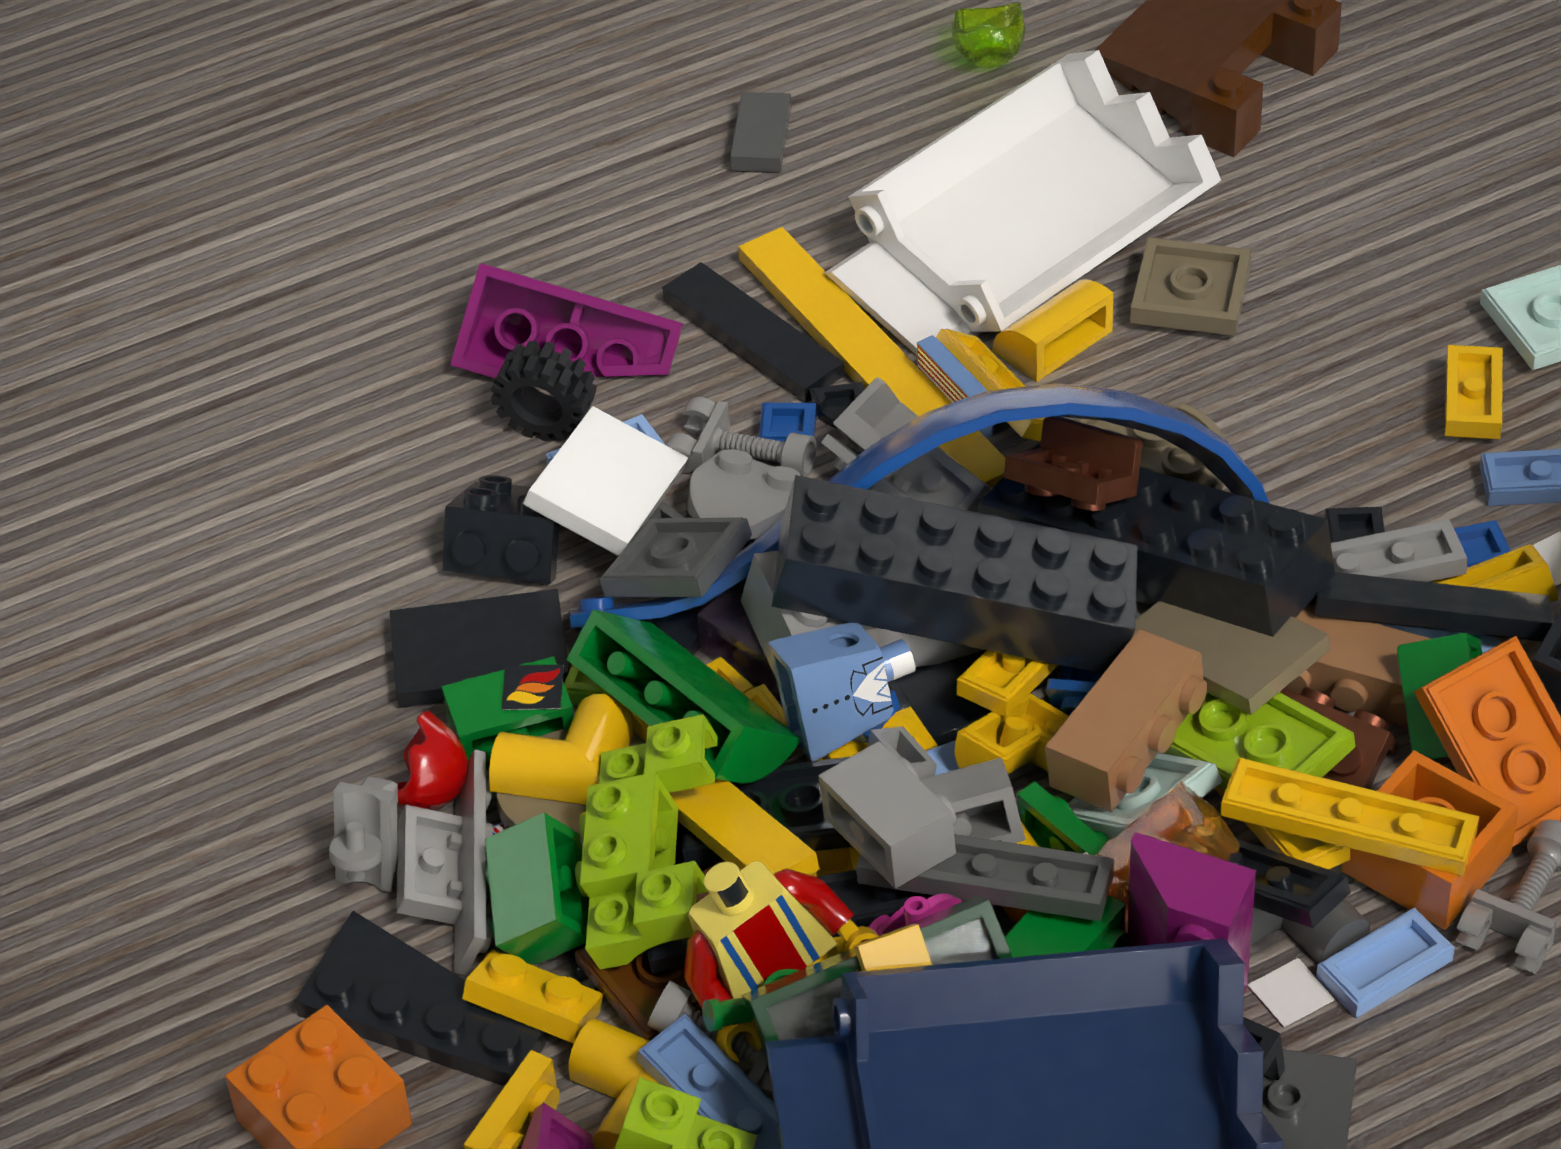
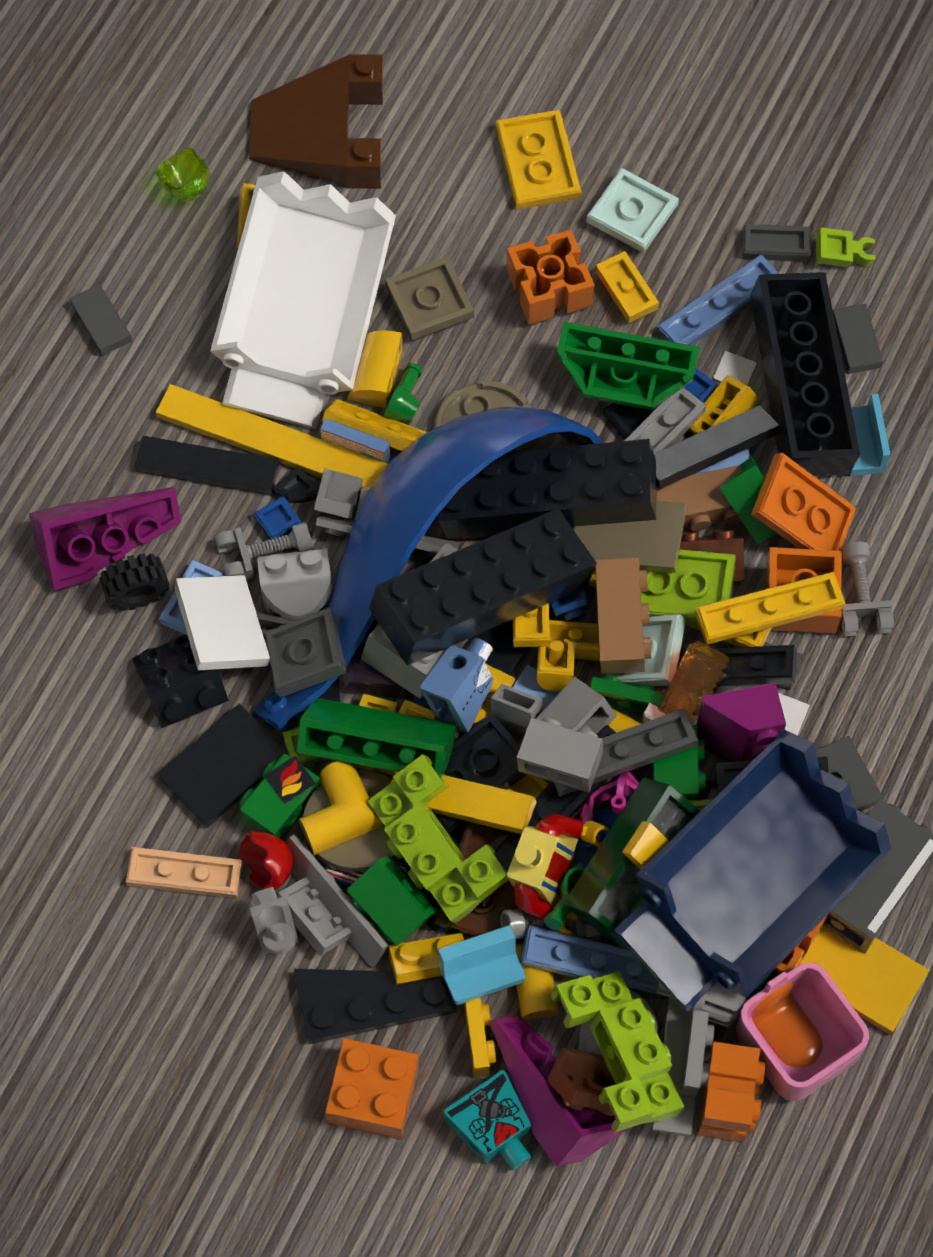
camera: 40 degrees left, 20 degrees up
(321, 733) = (184, 872): none -> light nougat tile
(581, 1021) = (481, 965): none -> medium azure panel
(1057, 367) = (403, 404): none -> green bar
(1079, 464) = (502, 480): copper bracket -> none
(1368, 326) = (550, 277): none -> orange brick
(1385, 458) = (624, 365): none -> green wedge
(1385, 962) = (820, 670): light blue tile -> none
(1470, 212) = (538, 159): none -> yellow tile

